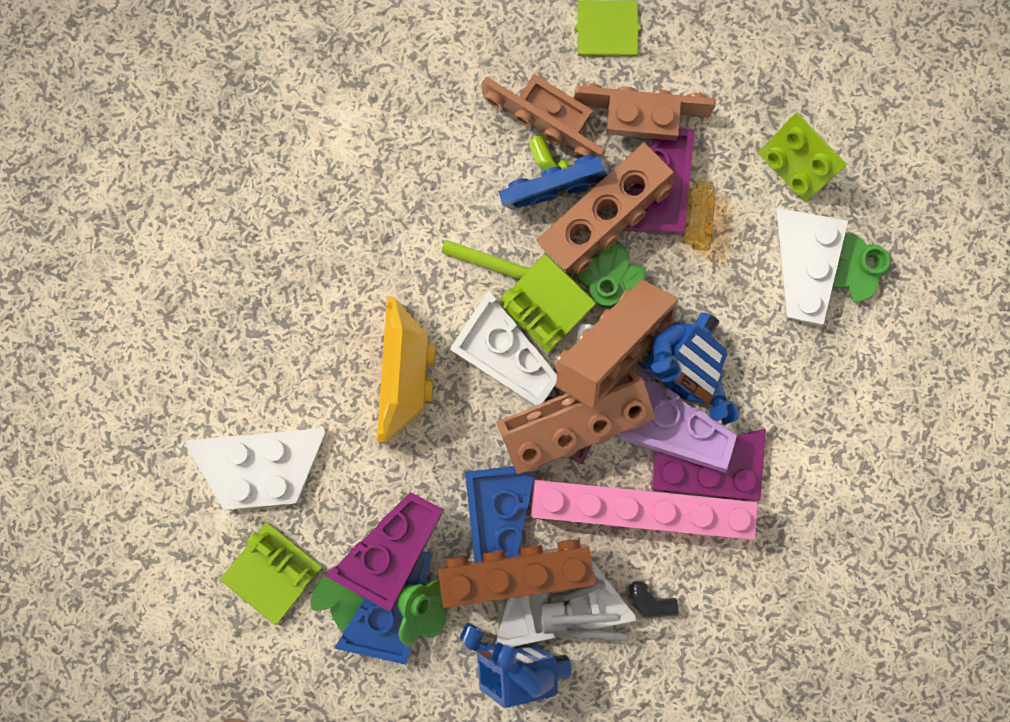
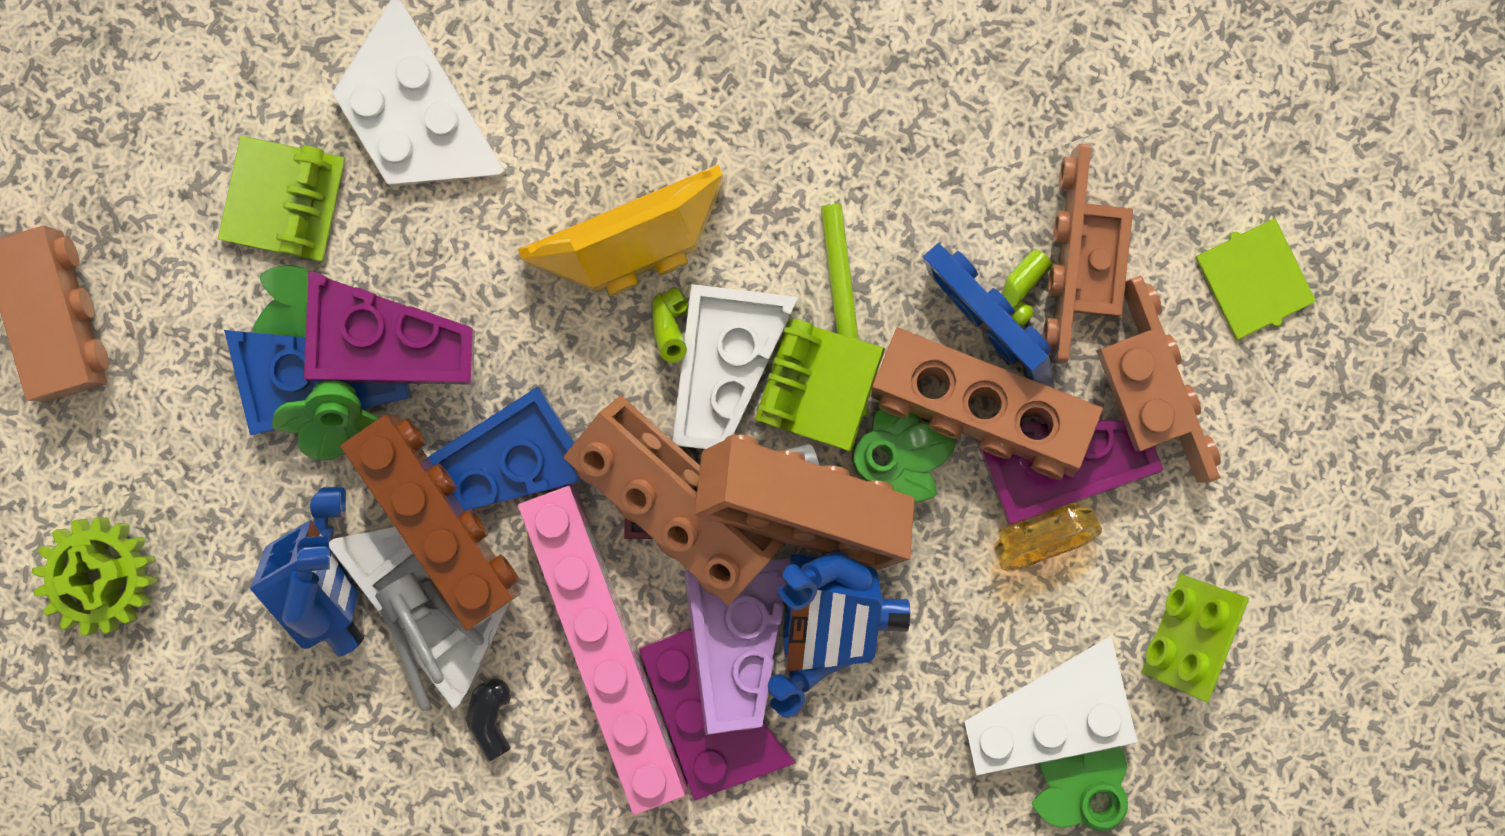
camera: 70 degrees right, 5 degrees up
(469, 378) = (665, 327): none -> lime arm

